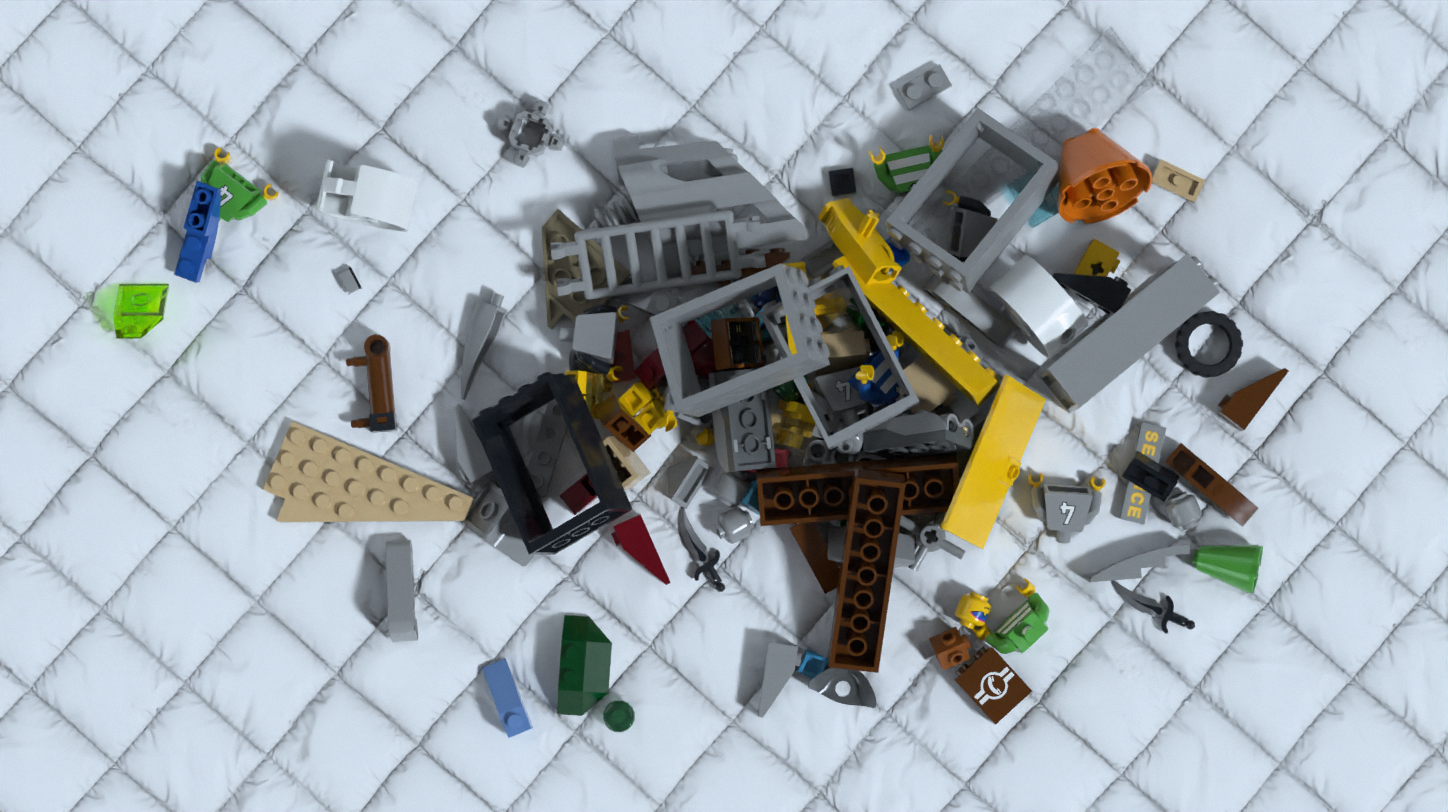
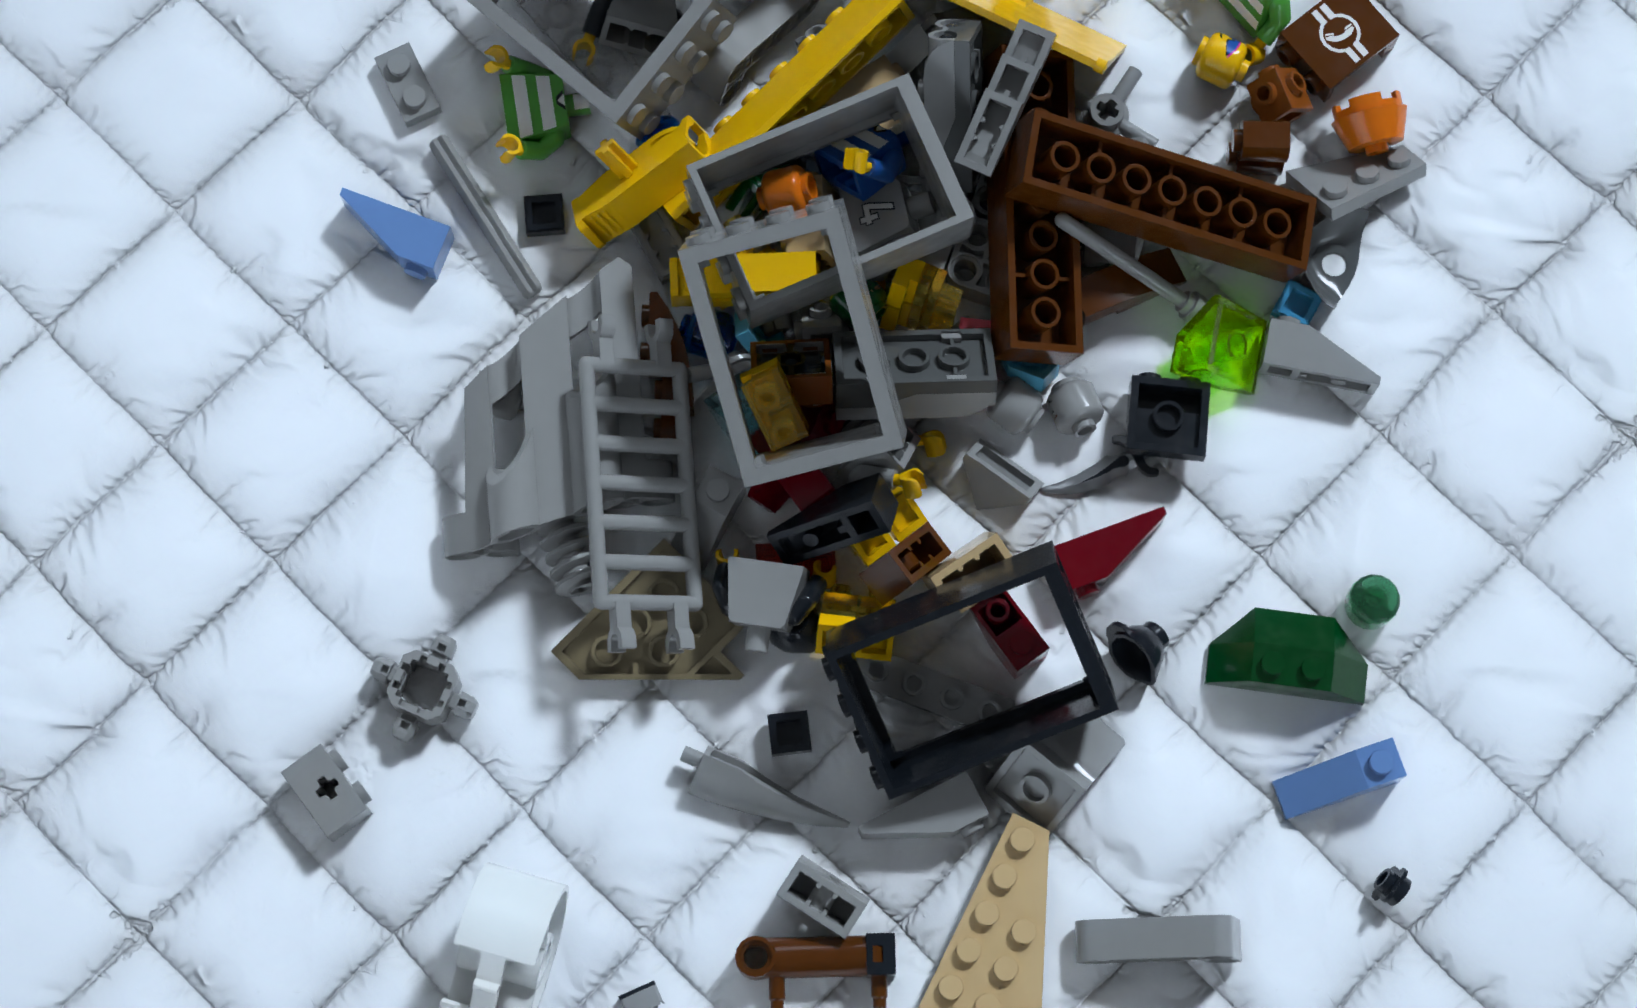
camera: 85 degrees left, 10 degrees down
(415, 385) = (823, 896): none -> light grey brick
(443, 732) = (1391, 885): none -> black plate
(466, 68) = (307, 780): none -> light grey brick
(516, 359) = (789, 733): none -> black plate
(581, 571) = (1138, 649): none -> black piece
(641, 379) = (837, 521): none -> black slope
(706, 333) = (774, 404): none -> clear yellow hips
(730, 583) = (1167, 417): none -> black plate
(779, 616) = (1221, 346): none -> clear neon green slope
(806, 595) = (1185, 303): none -> light grey piece
(818, 96) = (411, 239): none -> medium blue slope
(838, 144) = (485, 216): none -> light grey axle
(849, 332) = (786, 187): none -> orange head
(897, 700) = (1356, 180): none -> light grey wing
(911, 635) = (1259, 147): none -> reddish brown brick
(917, 466) = (1005, 98): none -> light grey slope
(933, 707) = (1371, 123): none -> orange cone

